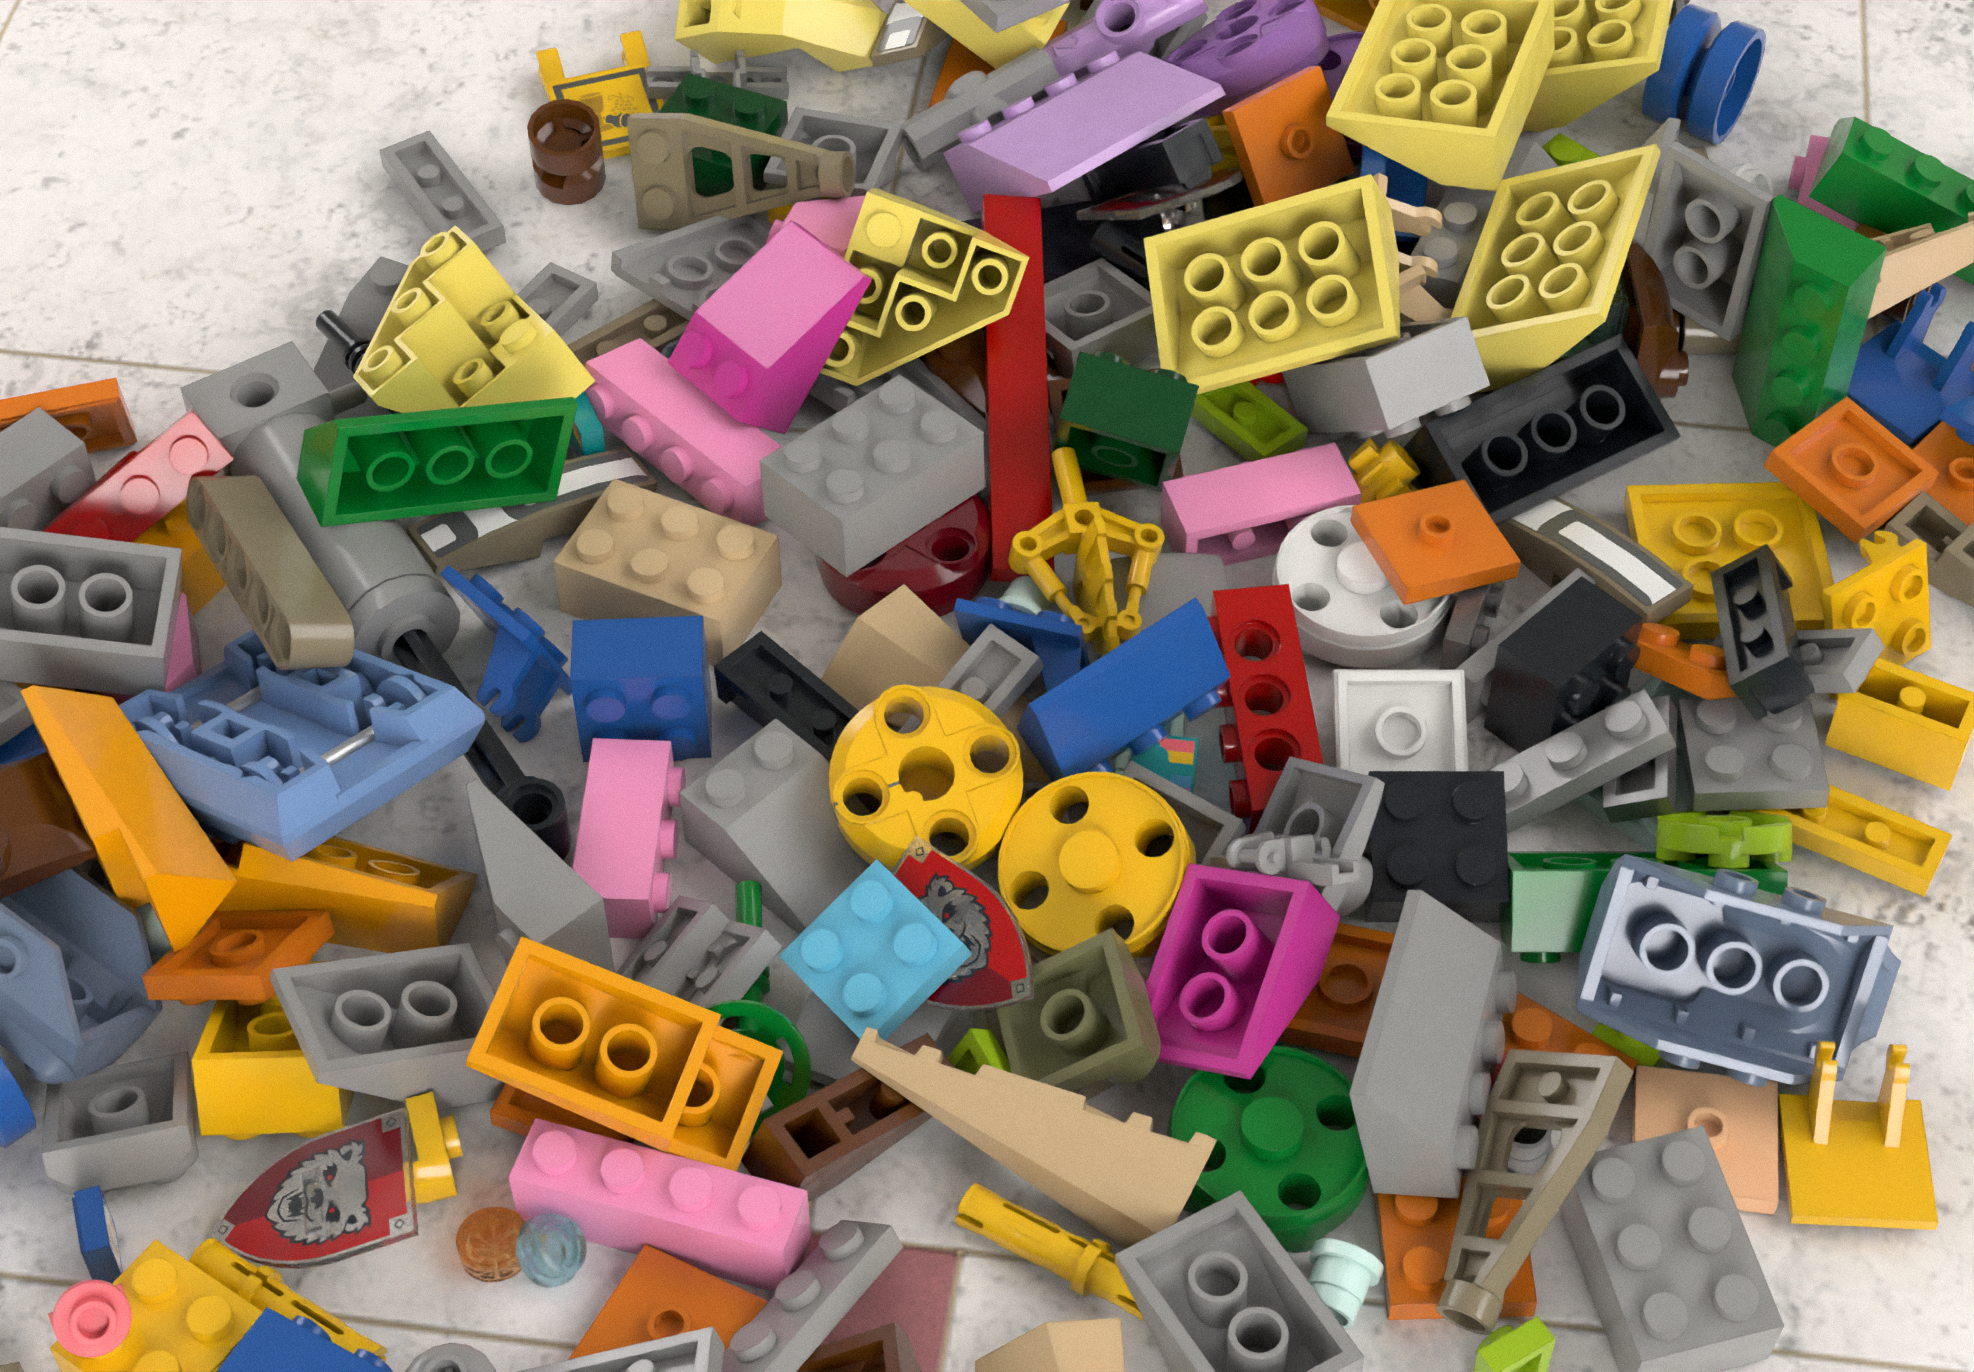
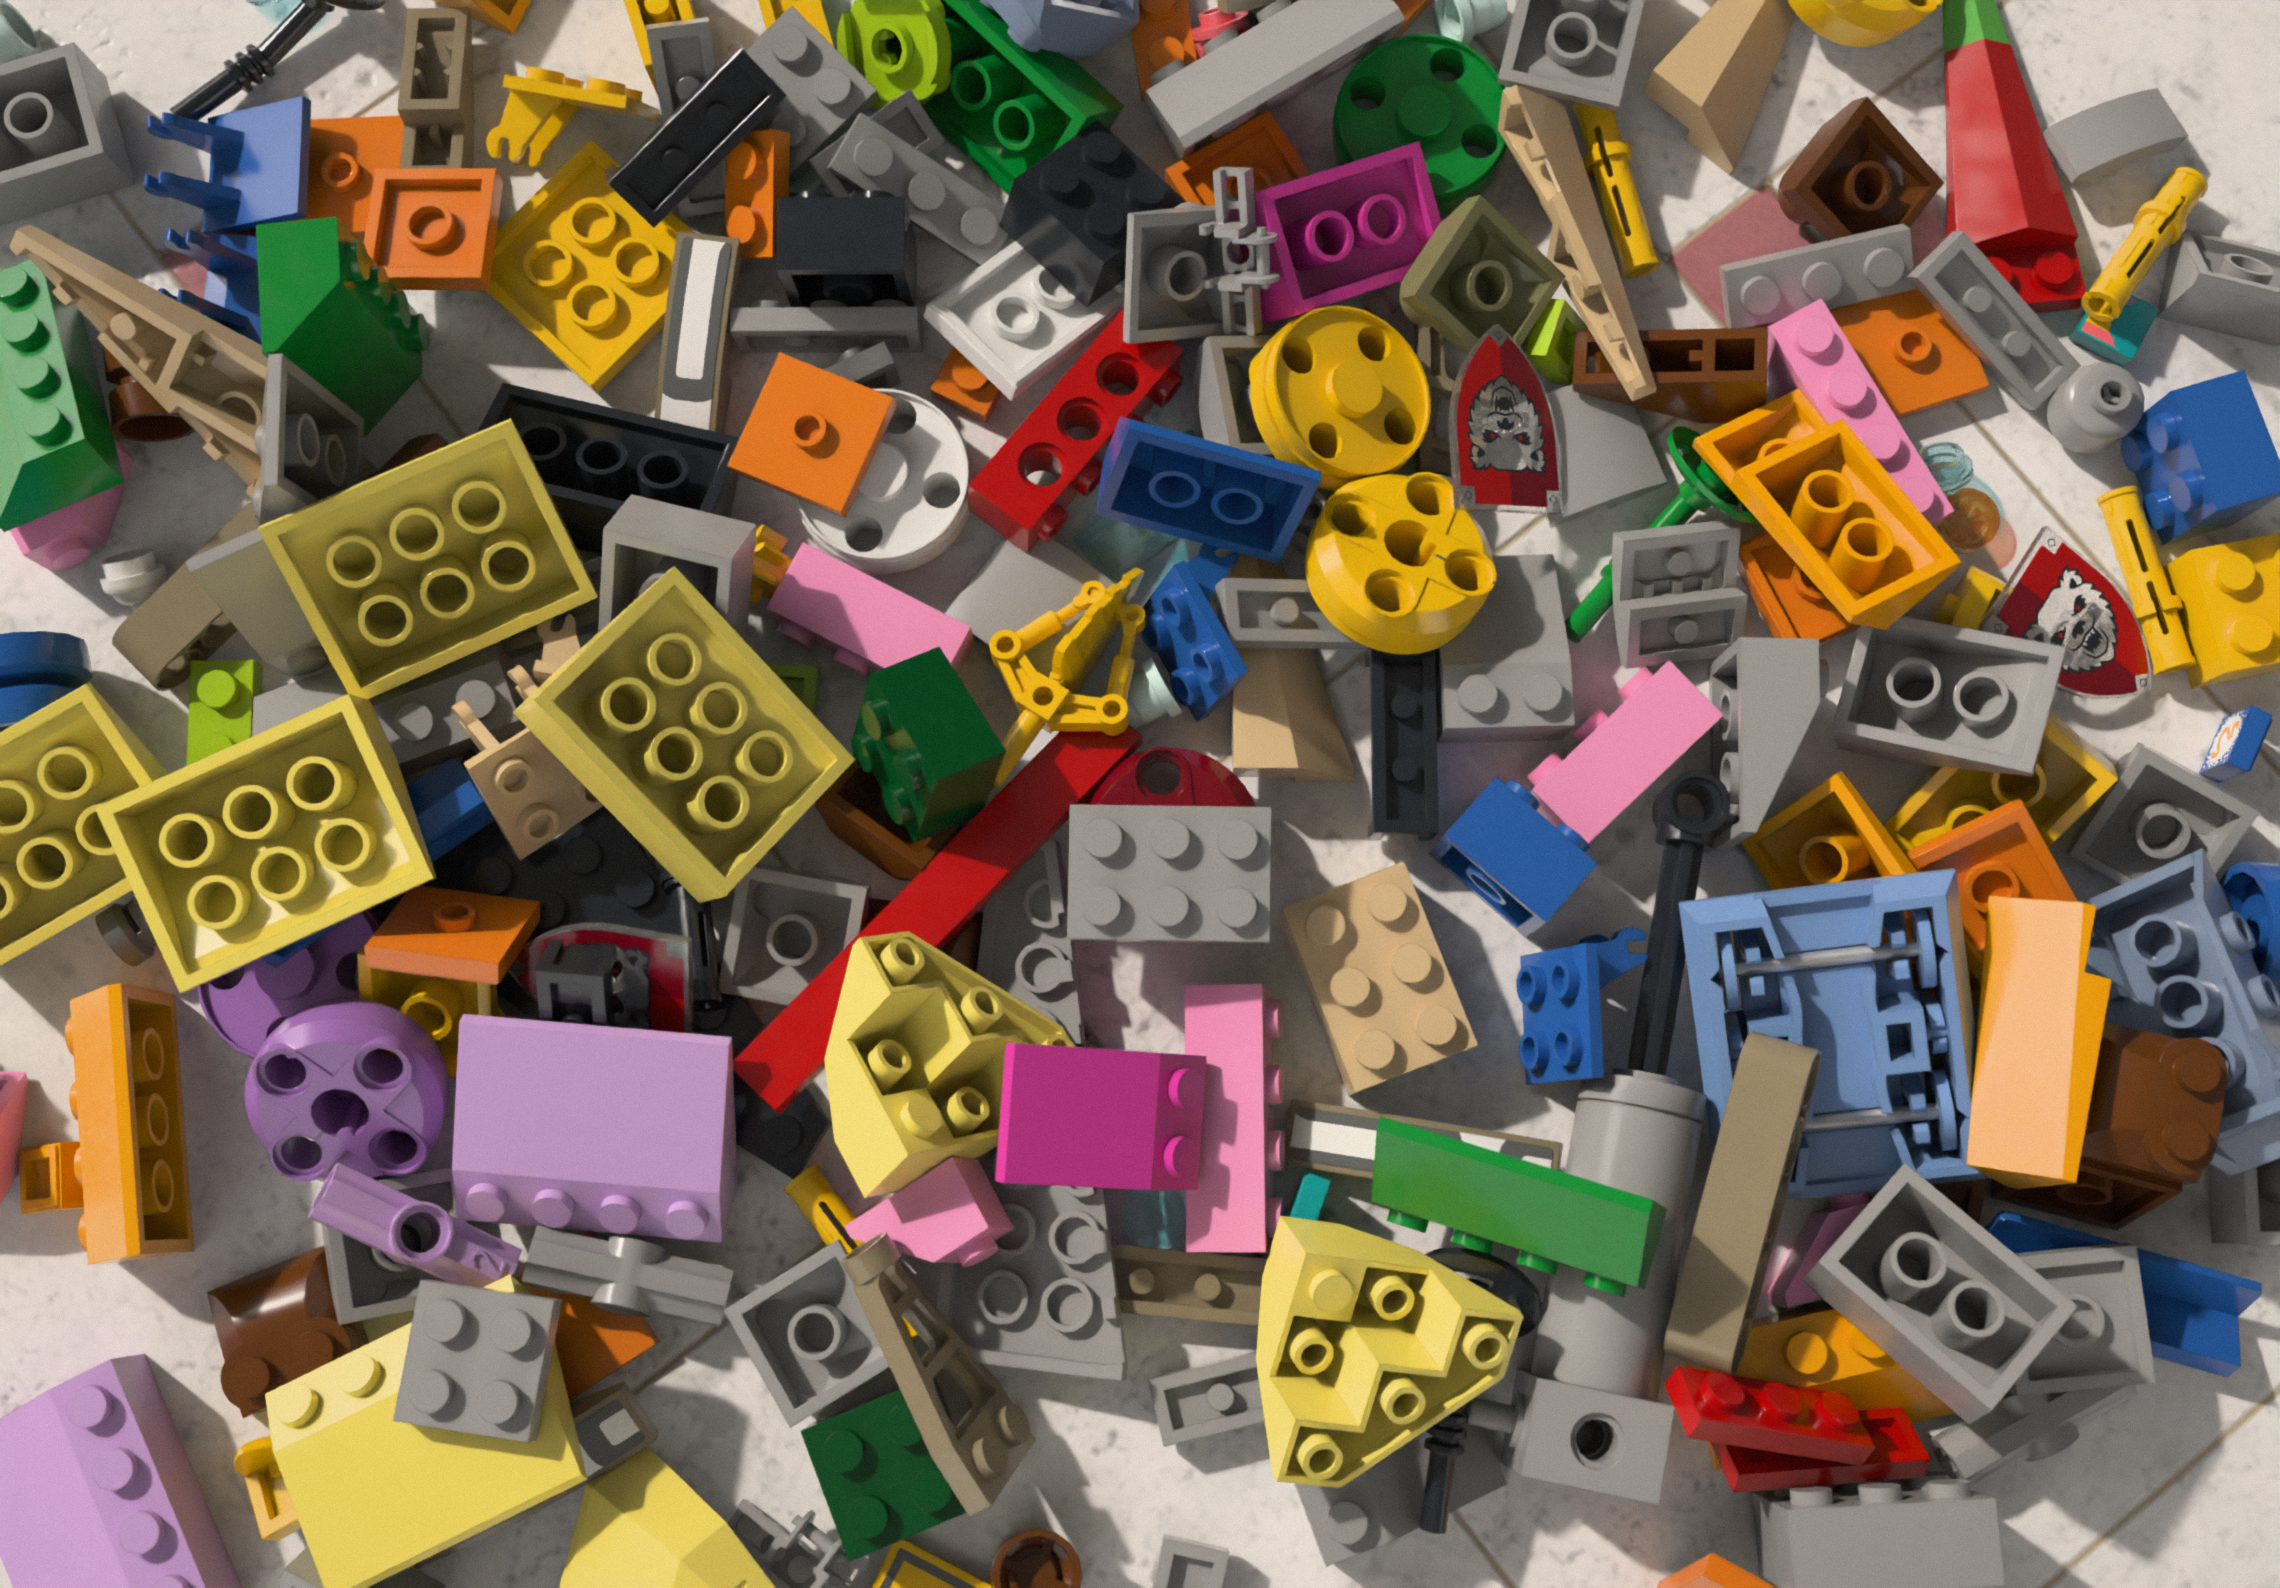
camera: 135 degrees left, 30 degrees up
(875, 953) = (1560, 462): medium azure plate -> none

